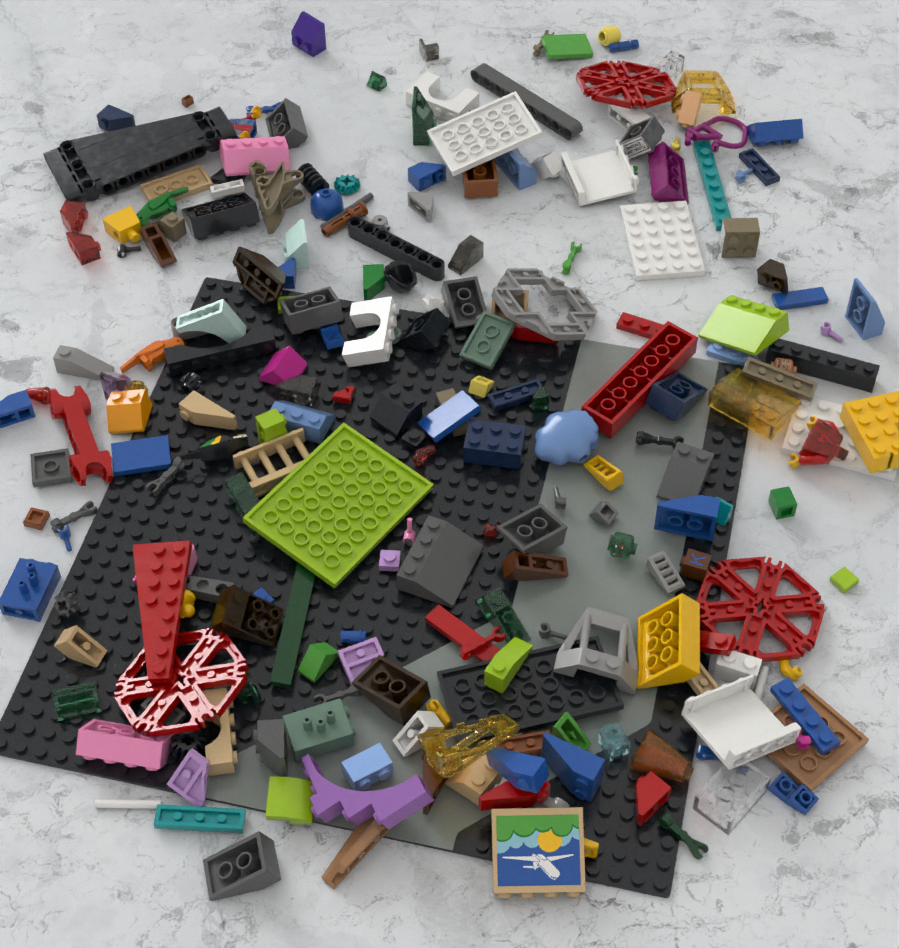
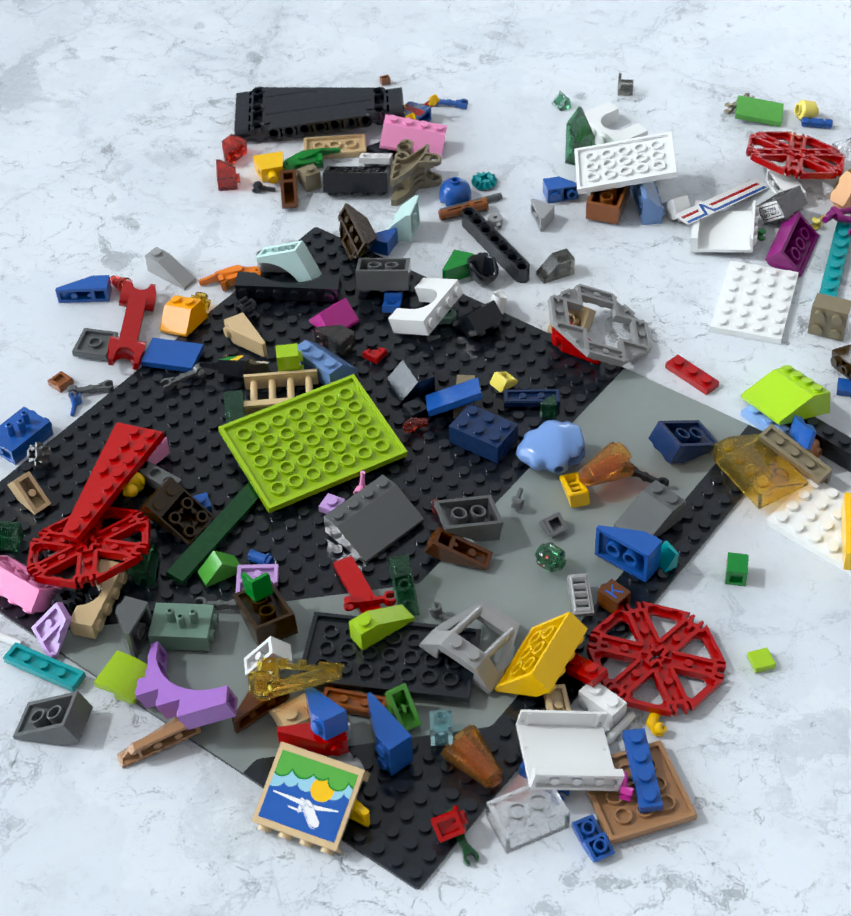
camera: 25 degrees right, 5 degrees down
(113, 382) = (182, 287): clear purple slope -> none
(114, 118) = (312, 78): dark blue slope -> none
(288, 122) = (459, 118): dark grey slope -> none
(309, 34) = (520, 48): dark purple slope -> none
(312, 179) = (452, 166): black piece -> none
(367, 767) = (205, 672): light blue brick -> none
(376, 667) = (258, 587): none -> green panel
(437, 708) = (297, 645): yellow arm -> none
(463, 301) = (529, 305): dark grey slope -> none
(487, 340) = (529, 342): sand green tile -> none
(539, 108) = (692, 150): dark grey beam -> none
(567, 264) = (648, 299): bright green piece -> none
(584, 148) = (721, 201): none -> white sticker
(627, 440) = (608, 465): none -> clear orange cone
(629, 387) = (635, 420): red brick -> none
(650, 796) = (445, 789): red slope -> none
(673, 828) = (450, 824): none -> red bracket
(779, 357) = (802, 433): none -> blue slope
(820, 445) = (801, 526): clear red torso -> none

